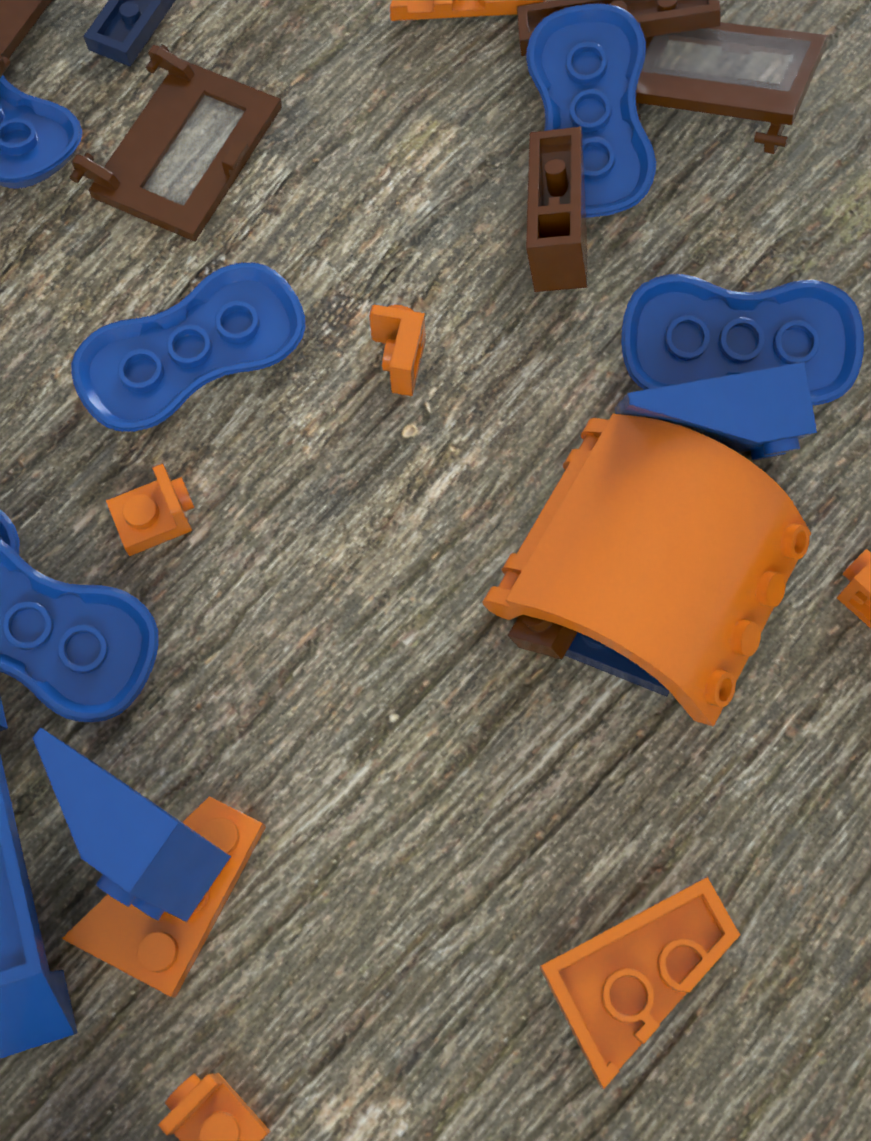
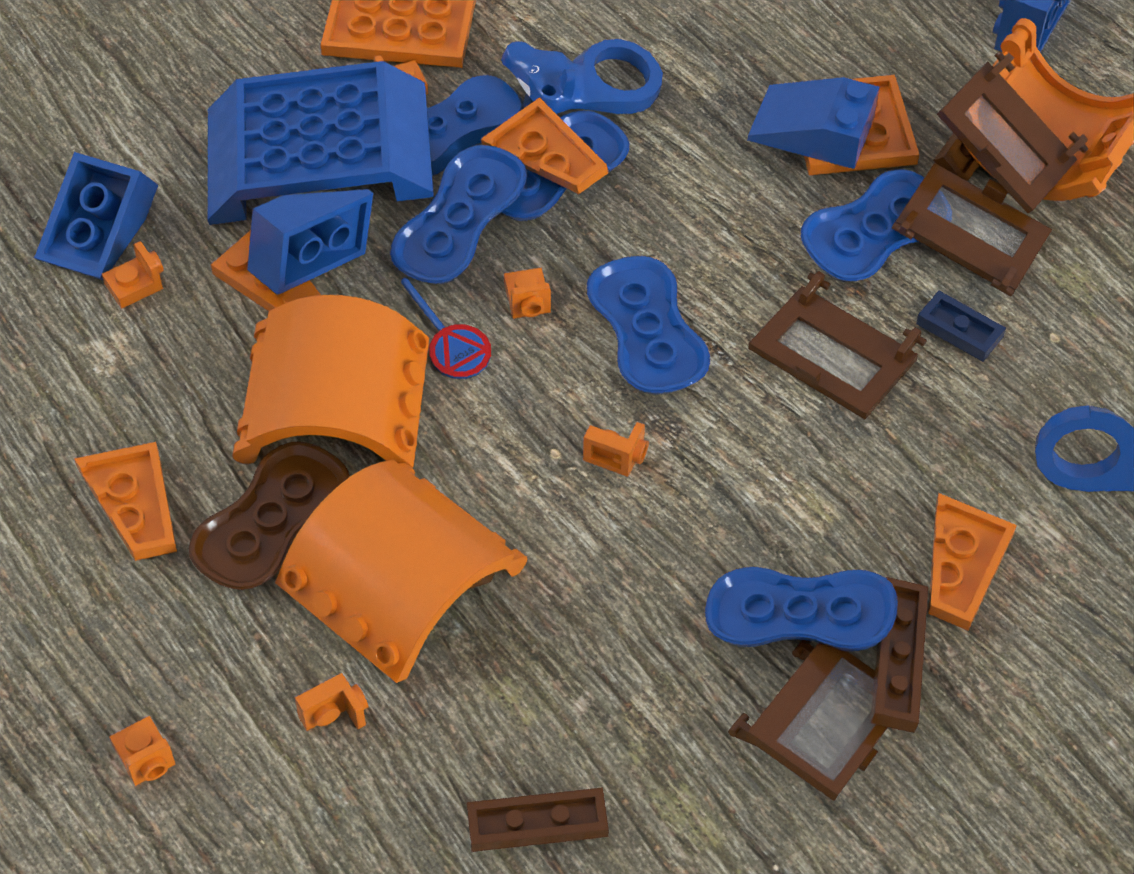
camera: 100 degrees right, 15 degrees down
(260, 585) = (456, 349): none -> piece
(383, 735) = (335, 372): none -> orange hinge
(556, 210) = (705, 562): reddish brown slope -> none
(667, 775) = (252, 536): none -> reddish brown plate
(696, 331) = (558, 694): blue plate -> none
(745, 411) = (492, 619): blue slope -> none

